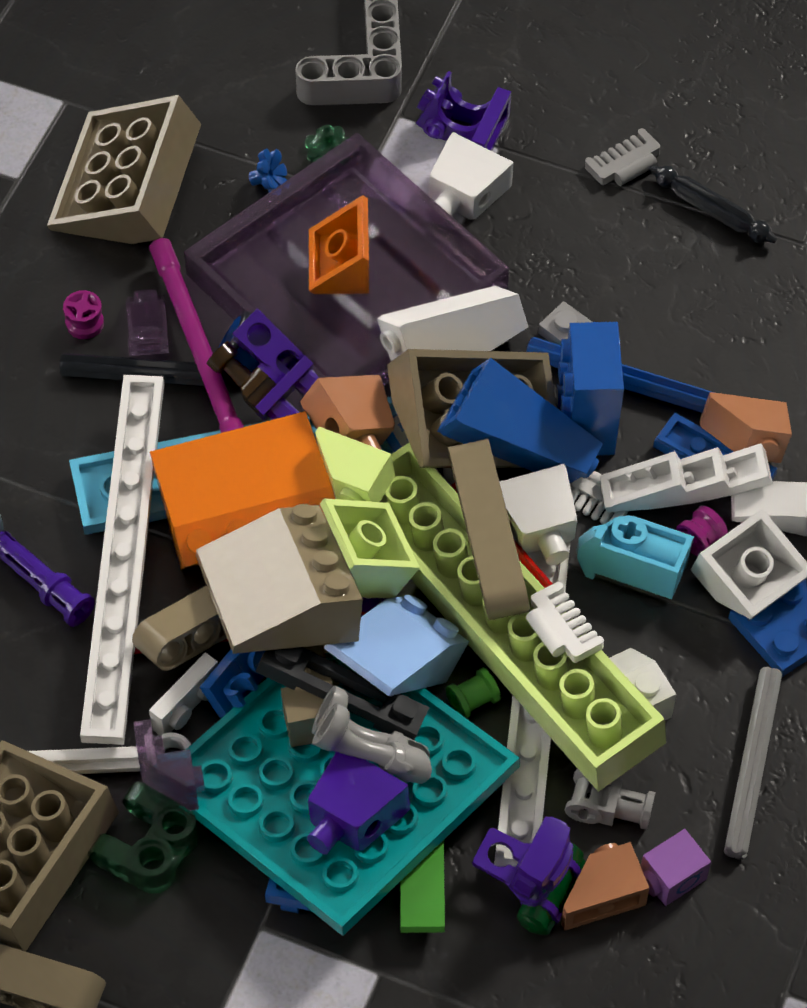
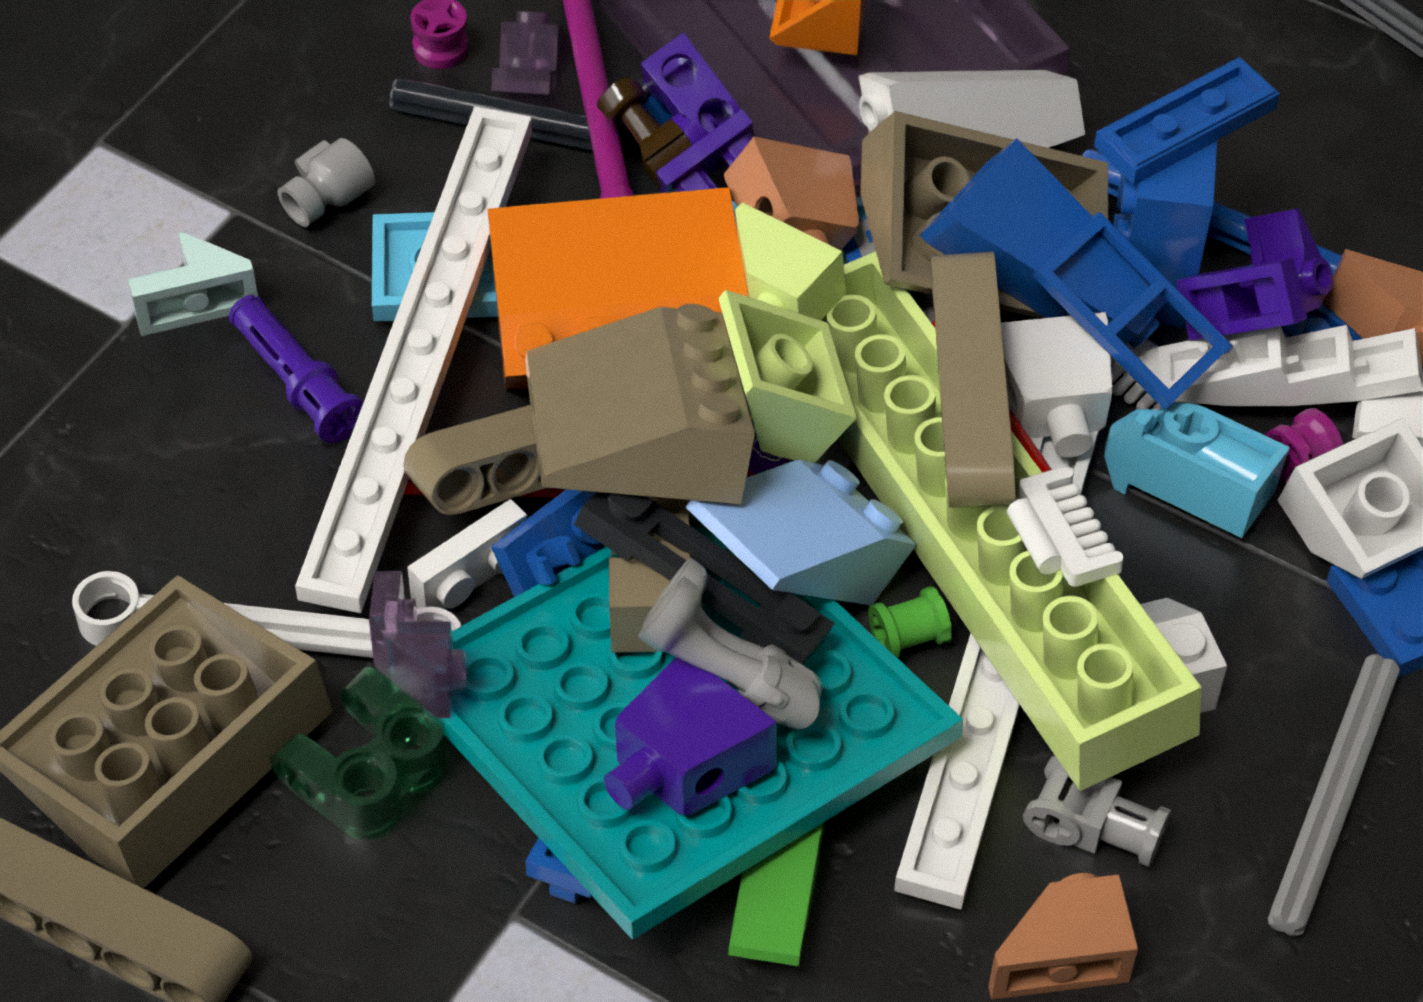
camera: 10 degrees right, 5 degrees down
(35, 434) = (329, 177): none -> light grey piece
(543, 872) = (968, 899): dark purple piece -> none
(567, 481) = (1106, 335): none -> blue window
(598, 330) = (1186, 120): none -> blue tile
(665, 432) = (1274, 290): none -> dark purple tile
(675, 867) = (1185, 928): medium lavender brick -> none

